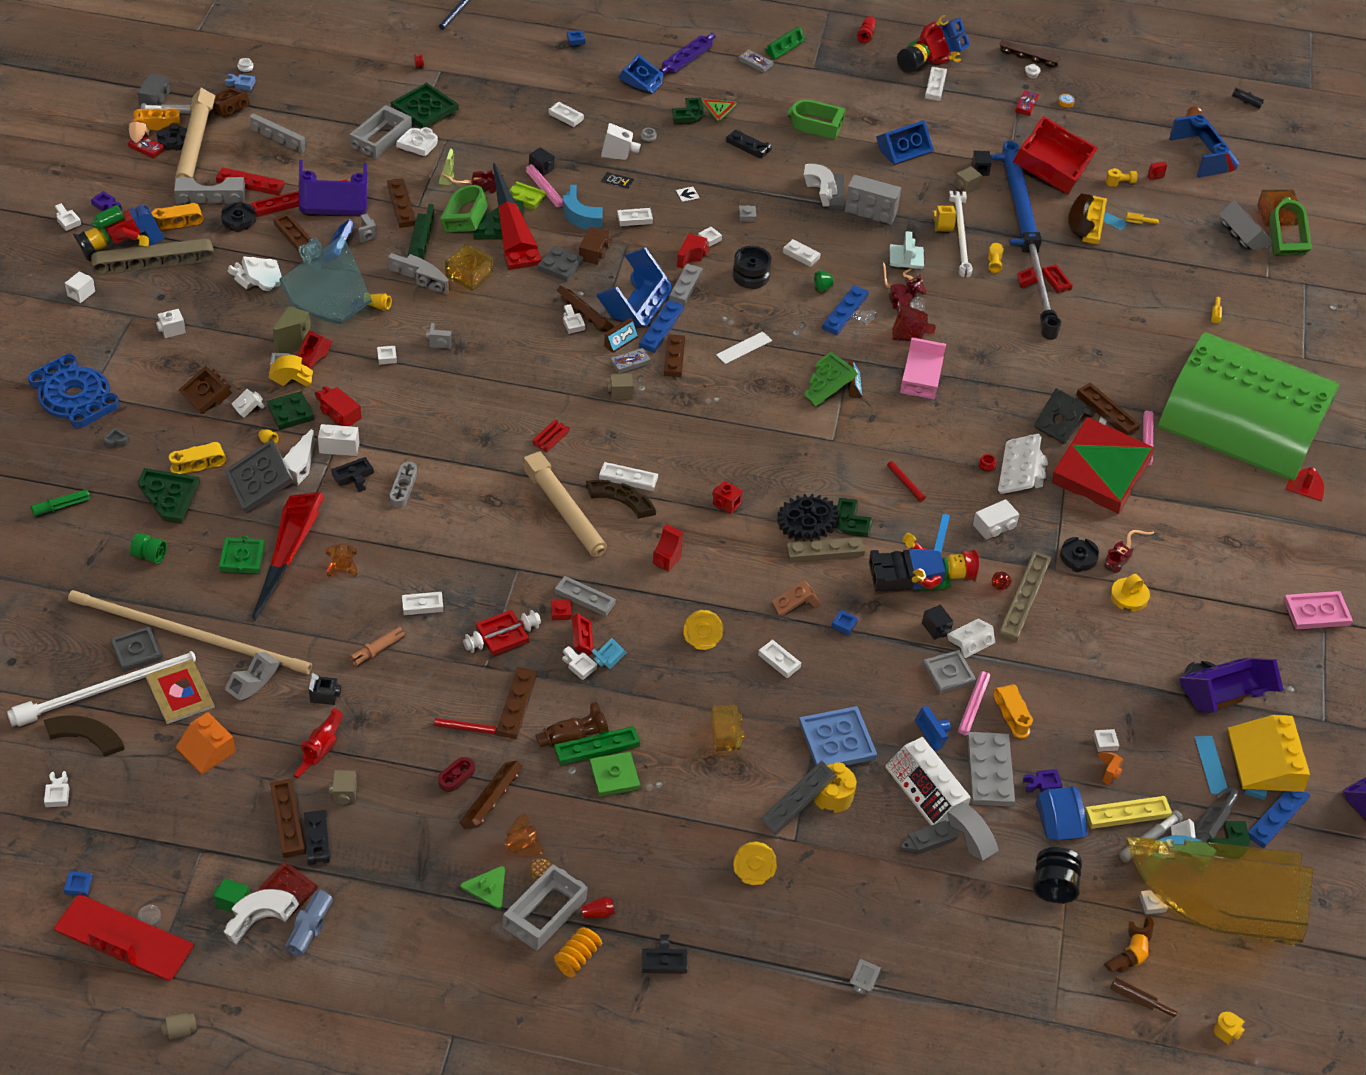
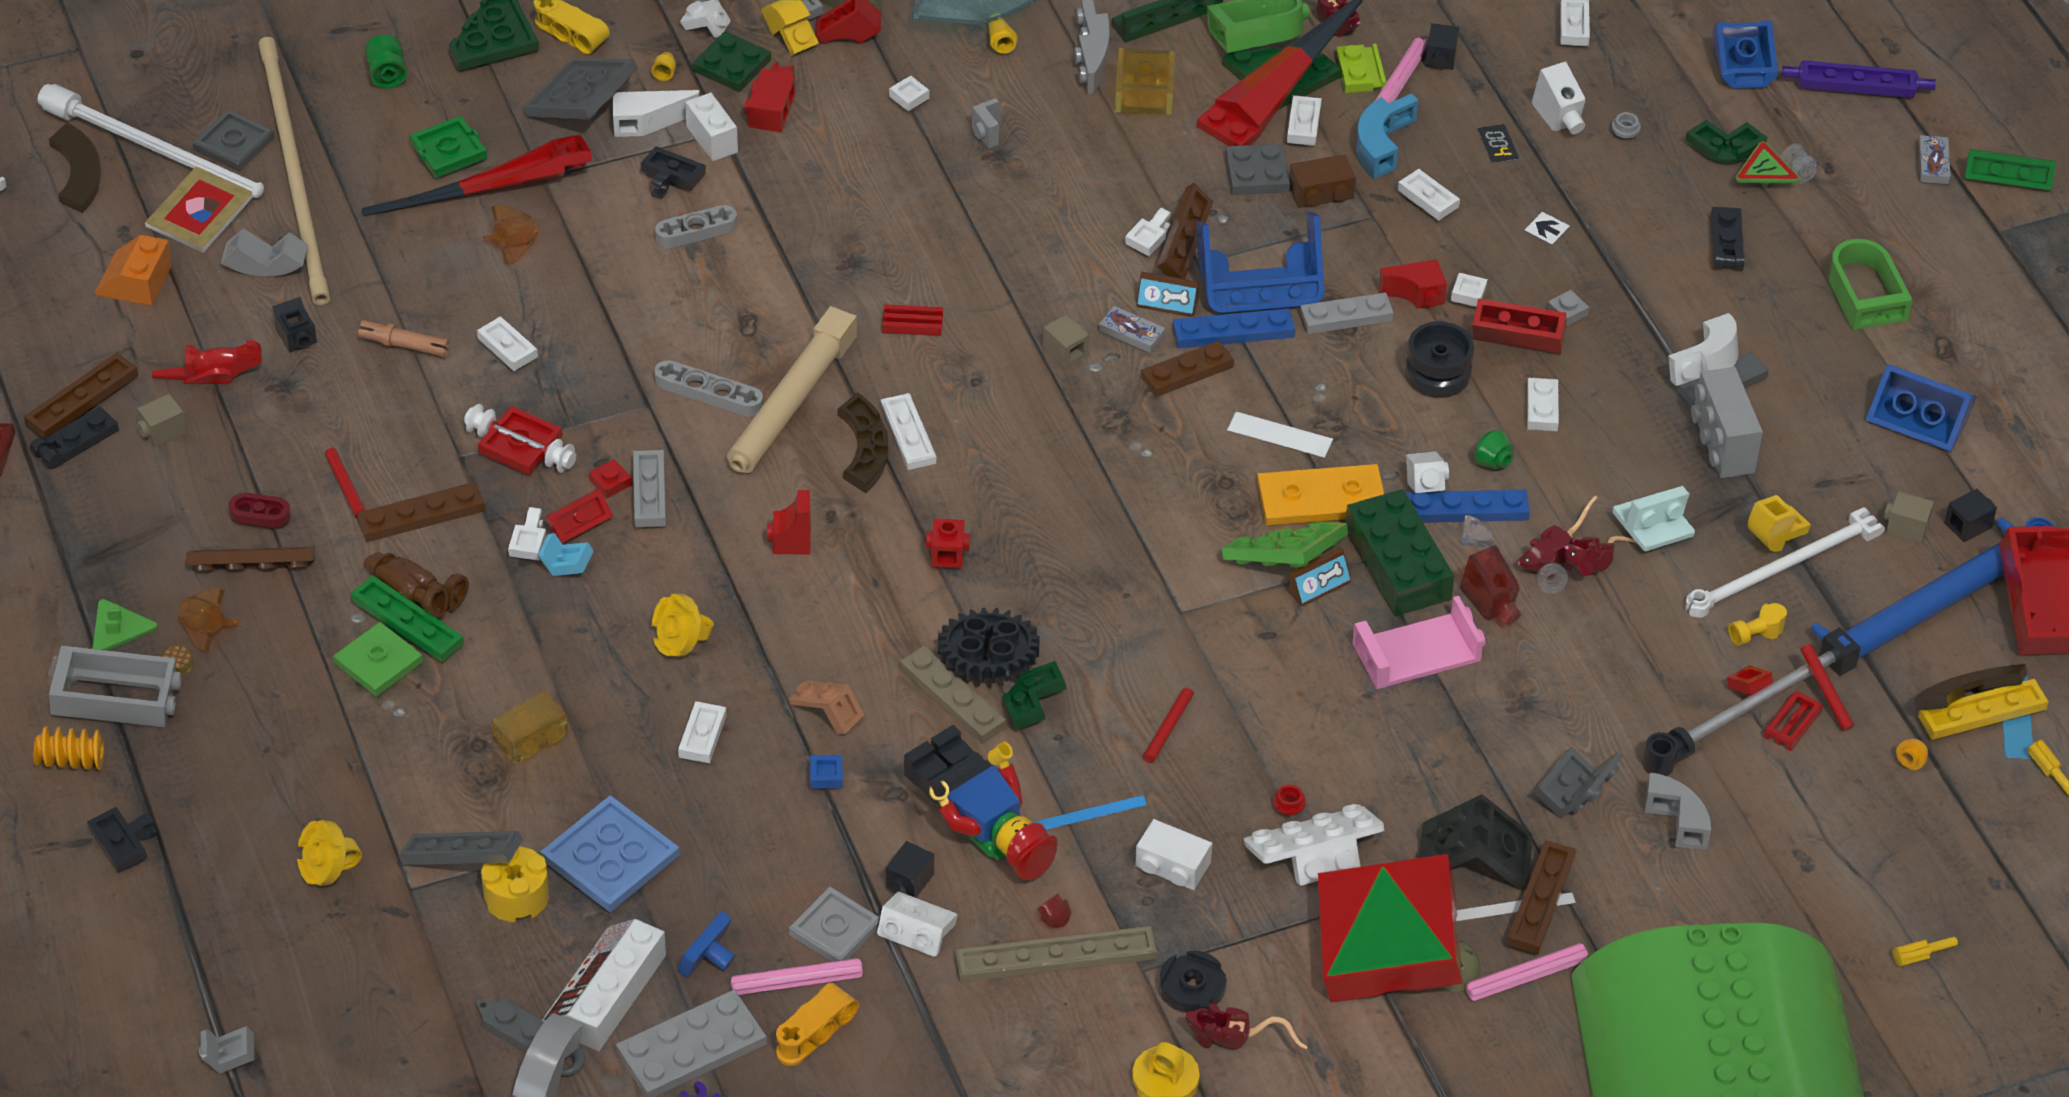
camera: 60 degrees right, 0 degrees up
(545, 230) = (1304, 120): none -> white plate
(552, 525) = (741, 400): none -> light grey beam
(599, 908) = (153, 741): red cone -> none
(728, 95) = (1801, 163): none -> clear wheel
(753, 230) = (1519, 326): none -> red brick
(798, 353) = (1316, 493): none -> light orange plate
(820, 309) = (1426, 472): none -> white brick
(863, 344) = (1399, 552): none -> dark green brick
(1050, 256) = (1827, 687): none -> red bar
(1056, 359) = (1574, 782): none -> dark grey bracket
(1094, 337) = (1673, 798): none -> light grey brick
(1105, 253) = (1912, 754): none -> light orange plate

